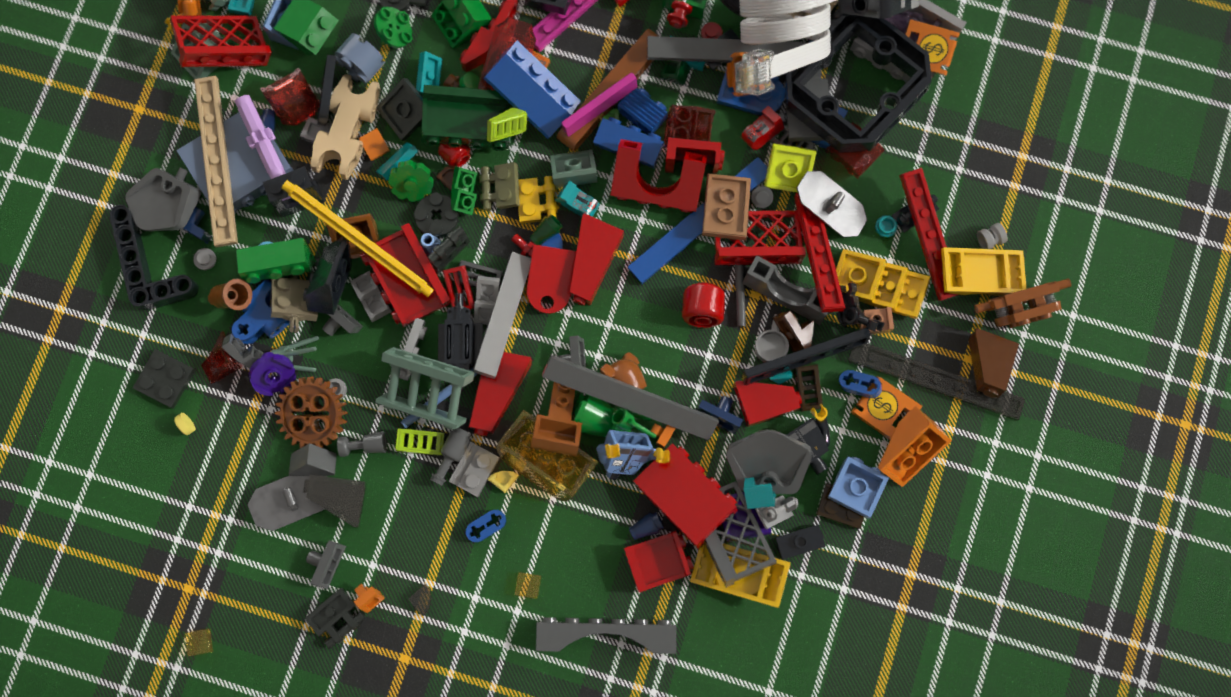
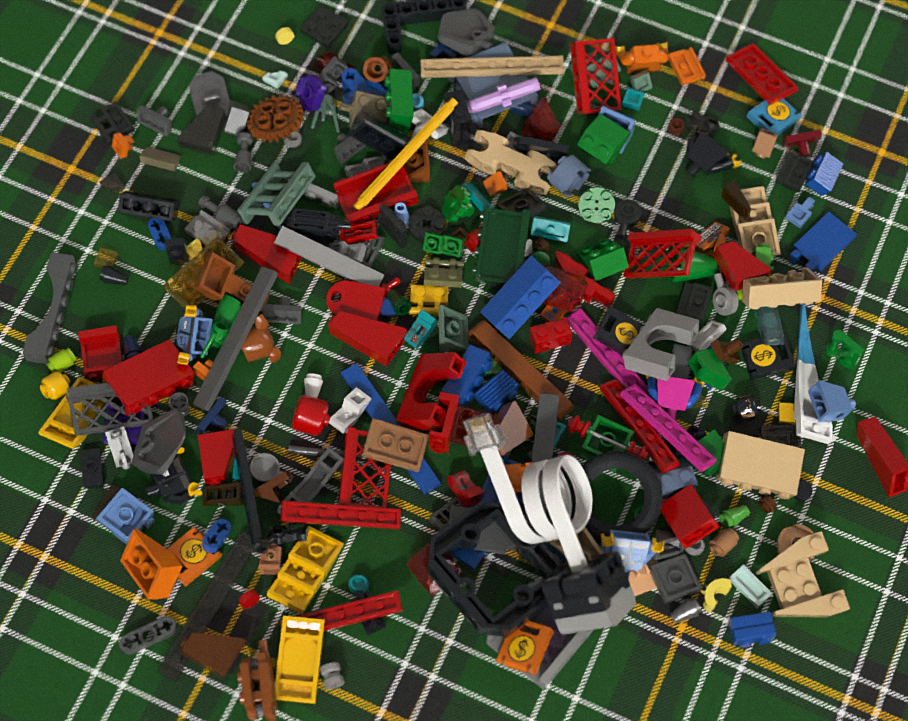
camera: 95 degrees right, 15 degrees down
(198, 642) = (117, 35): clear yellow tile -> none
(204, 259) = (414, 59): light grey plate -> none
(224, 269) = (399, 63): none -> dark grey tile
(247, 426) = (275, 79): none -> light aqua tile
(302, 228) = (420, 120): none -> white plate
(379, 547) = (160, 158): none -> dark tan slope
(401, 437) = (238, 181): lime slope -> none
(454, 544) = (148, 205): none -> black brick
(509, 124) = (491, 277): lime slope -> none
(516, 495) = (177, 251): none -> black plate
(552, 572) = (113, 276): none -> black cone
(564, 57) = (550, 335): none -> red brick
(599, 104) = (501, 349): dark pink tile -> none
(664, 310) = (313, 384): none -> white cone
(674, 607) = (61, 360): none -> lime brick
(689, 266) = (351, 410): none -> white slope
(695, 90) = (513, 426): none -> dark orange slope
(707, 606) = (54, 385): none -> yellow head
(712, 453) = (178, 400): none -> dark grey wheel
(758, 495) = (134, 428): teal panel -> none
(762, 197) = (402, 480): dark grey plate -> none
(788, 166) = (423, 504): neon yellow tile -> none
(831, 204) = (384, 536): shield -> none
(925, 336) = (249, 599): none -> red tile
(986, 455) = (139, 632): none -> dark grey beam

